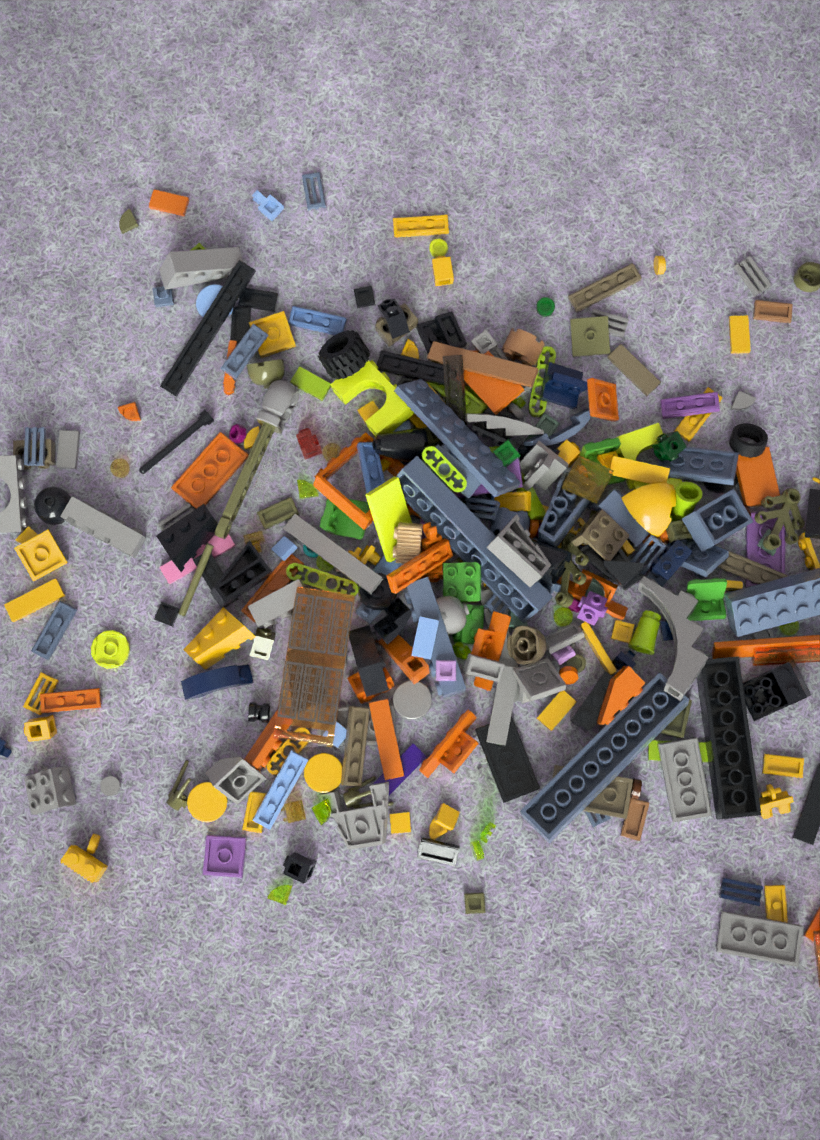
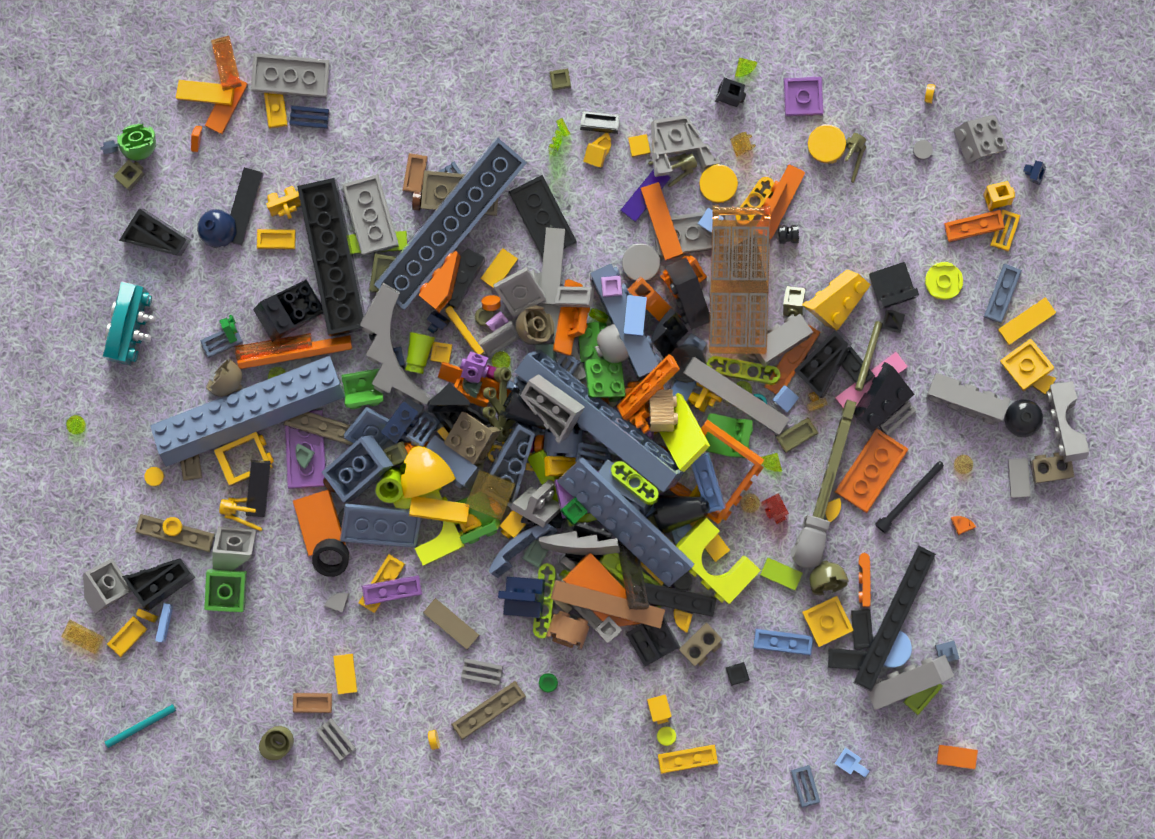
camera: 170 degrees right, 5 degrees up
(42, 430) = (1058, 471): sand blue tile -> none
(84, 863) = (935, 73): yellow brick -> none
(127, 222) = (997, 730): olive tile -> none
(161, 648) = (893, 285): none -> black bracket
(216, 680) = (833, 257): dark blue arch -> none
(234, 778) = (803, 166): light grey slope -> none
(237, 433) = (848, 511): magenta tile -> none
(244, 351) = (853, 595): sand blue tile -> none
(254, 801) = (779, 140): yellow tile -> none
(280, 789) = (758, 162): light blue tile -> none
(322, 811) = (715, 147): clear neon green tile -> none
(344, 354) = (750, 601): black tyre -> none
(355, 746) = (691, 211): dark tan tile -> none
(393, 318) = (704, 644): black slope -> none
(453, 748) = (595, 220): orange bracket -> none
(590, 336) = (499, 653): olive plate -> none
(602, 399) = (481, 584): orange tile -> none
(668, 446) = (412, 538): dark green brick -> none
(734, 585) = (337, 408): yellow tile -> none
(790, 498) = (291, 481): olive plant -> none

